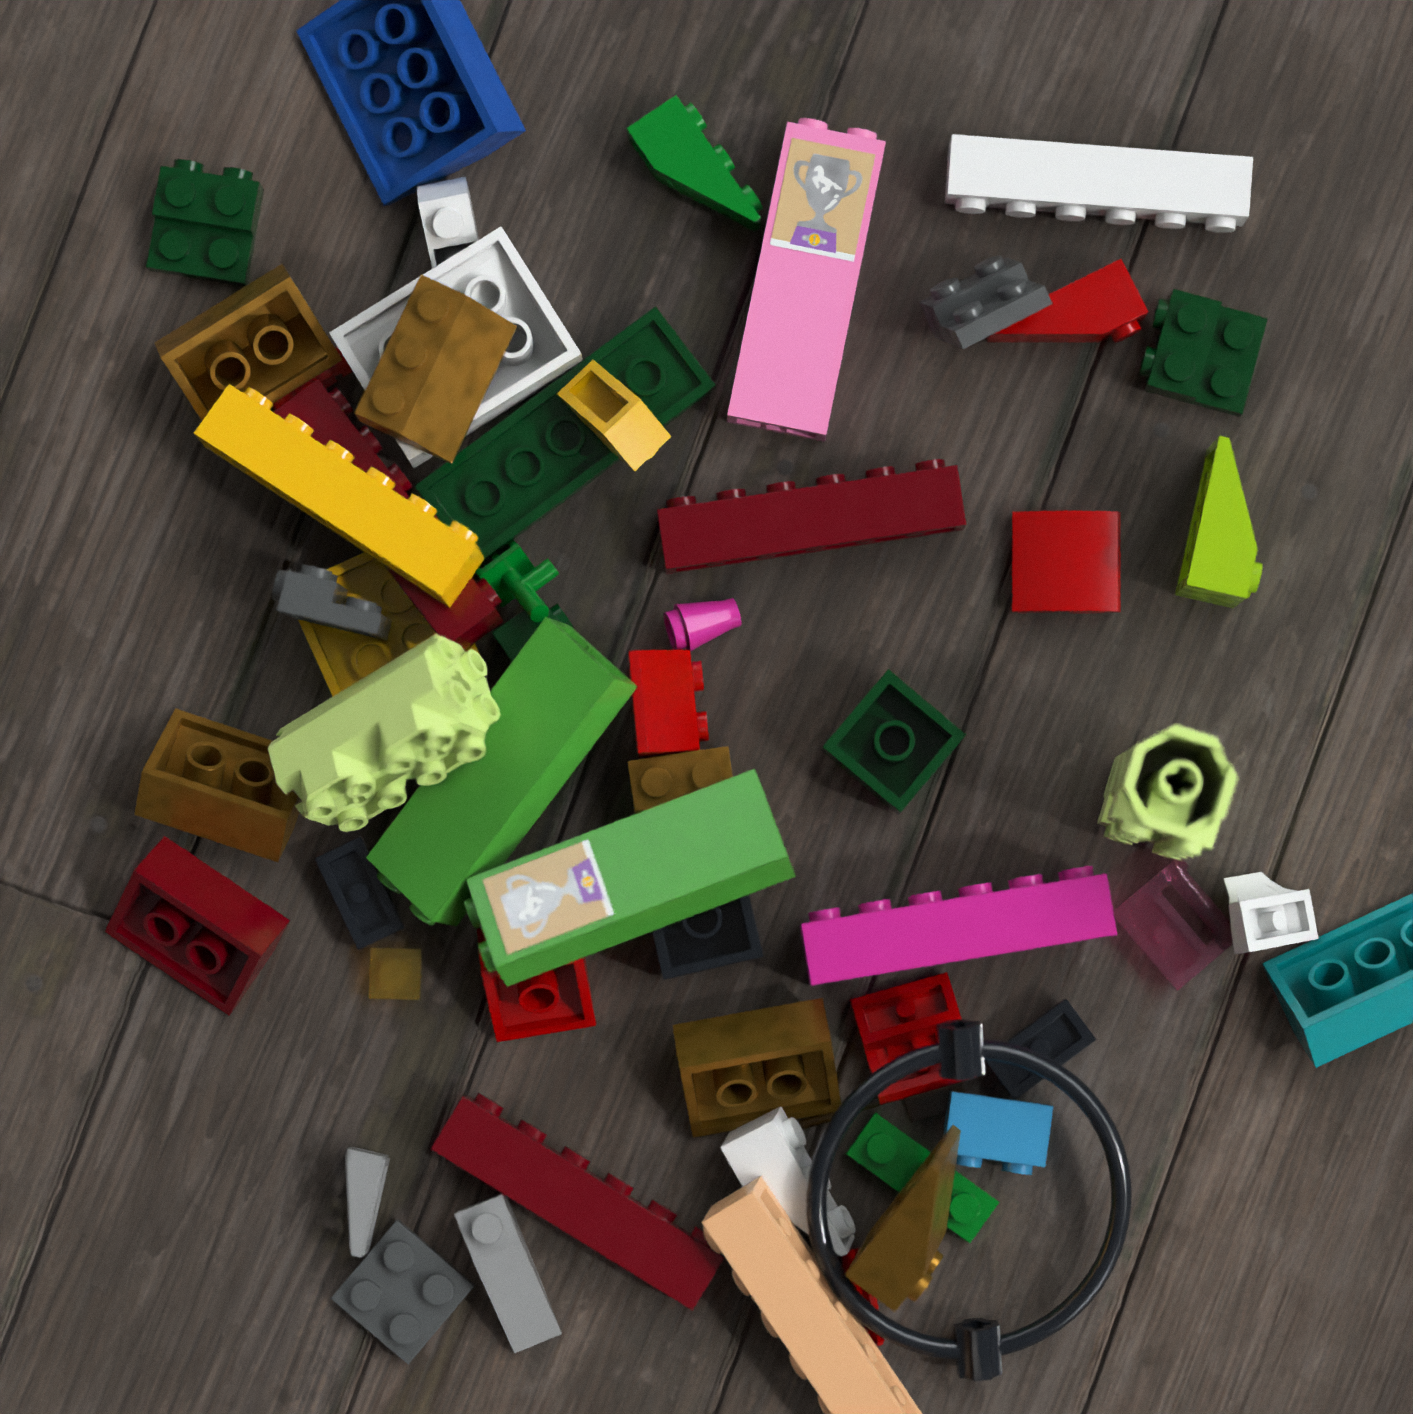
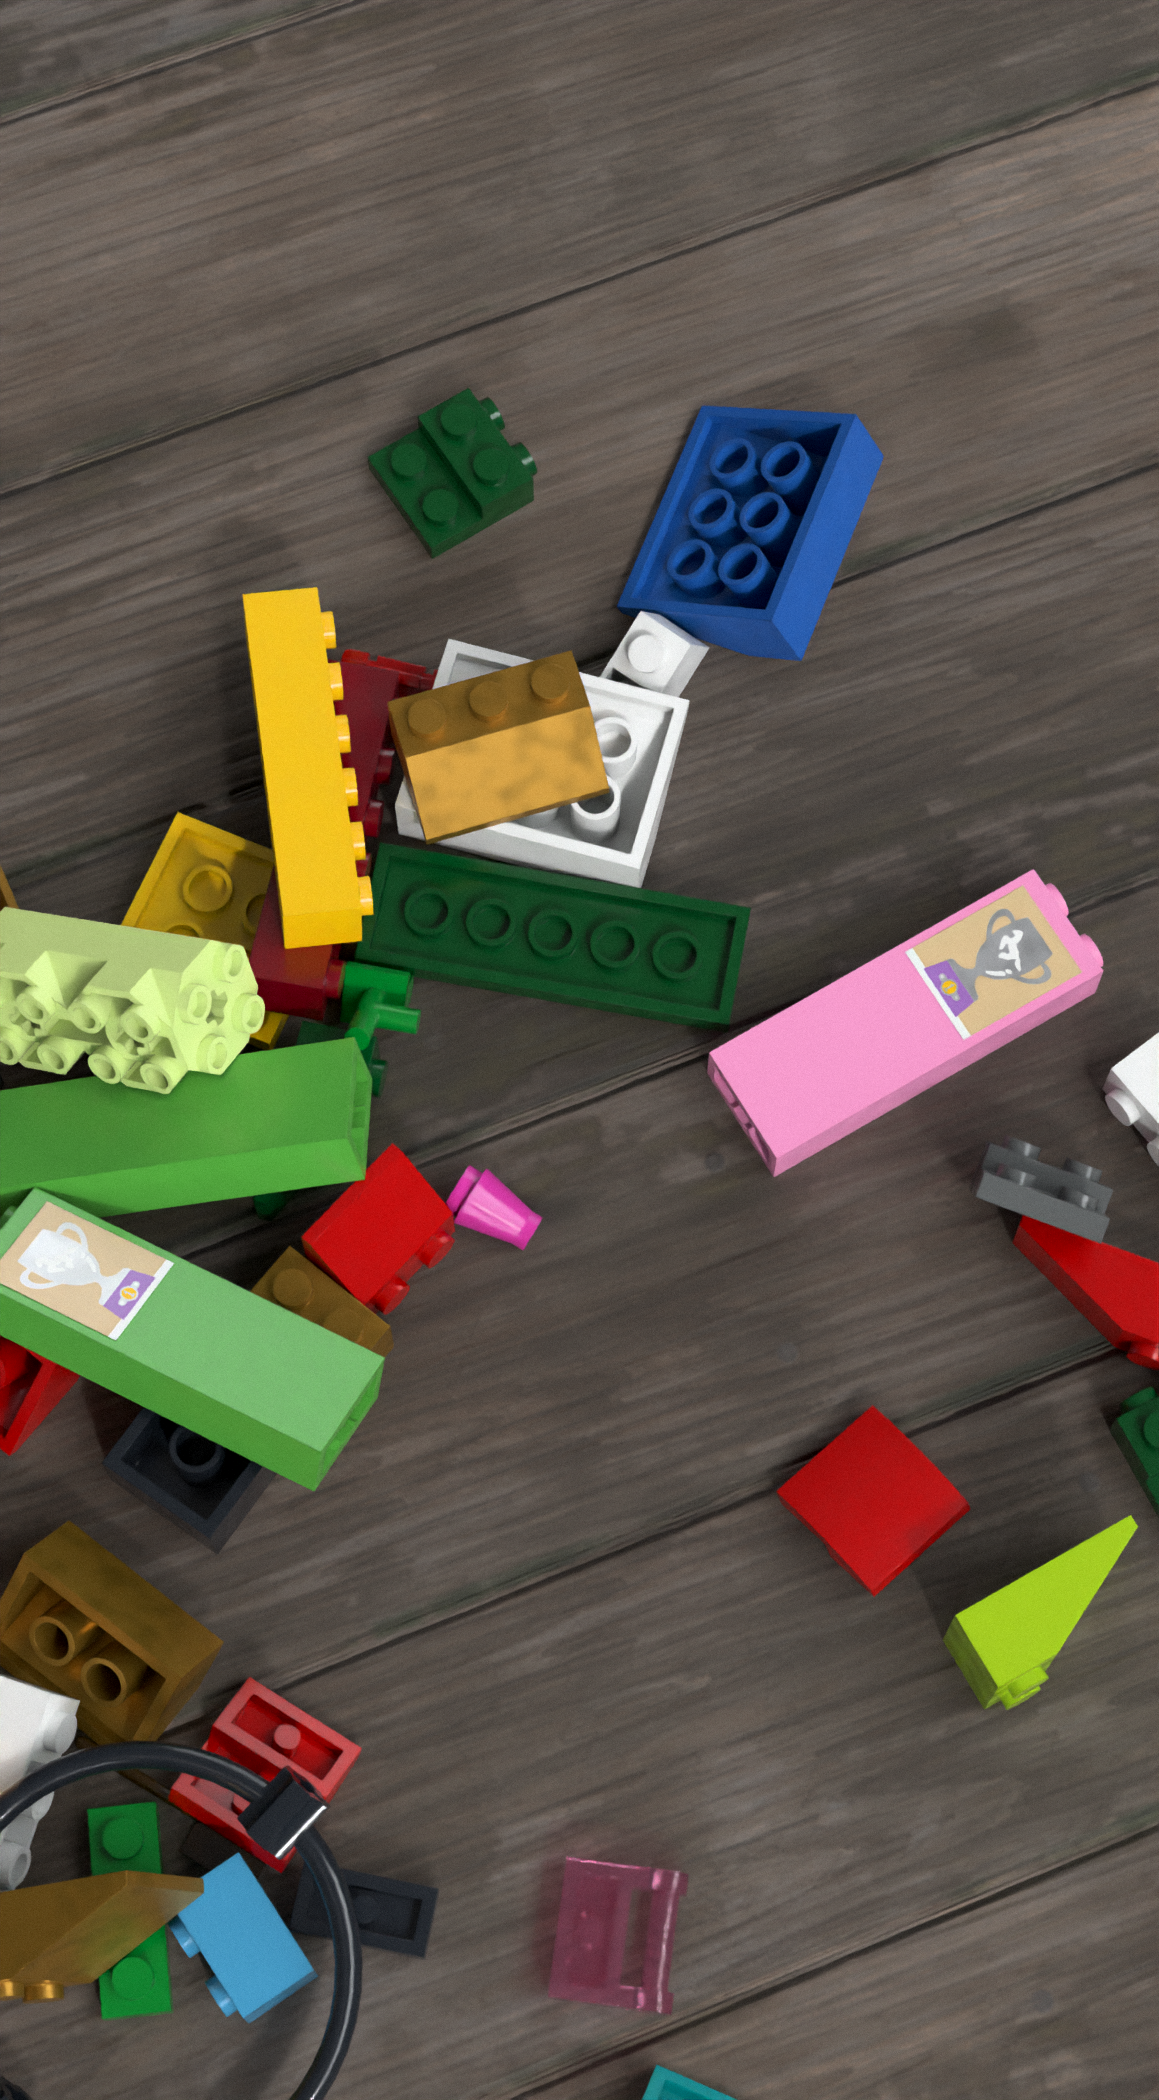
camera: 45 degrees right, 15 degrees down
(251, 339) = (387, 597): pearl gold slope -> none
(319, 599) = (191, 838): dark grey plate -> none
(614, 415) = (610, 954): yellow slope -> none
(683, 159) = (908, 817): green slope -> none
(811, 518) = (687, 1221): dark red brick -> none
(893, 742) = (539, 1484): dark green brick -> none
(957, 928) = (407, 1707): dark pink brick -> none
(1140, 801) = (727, 1777): yellowish green brick -> none
(1267, 914) = (707, 2018): white slope -> none

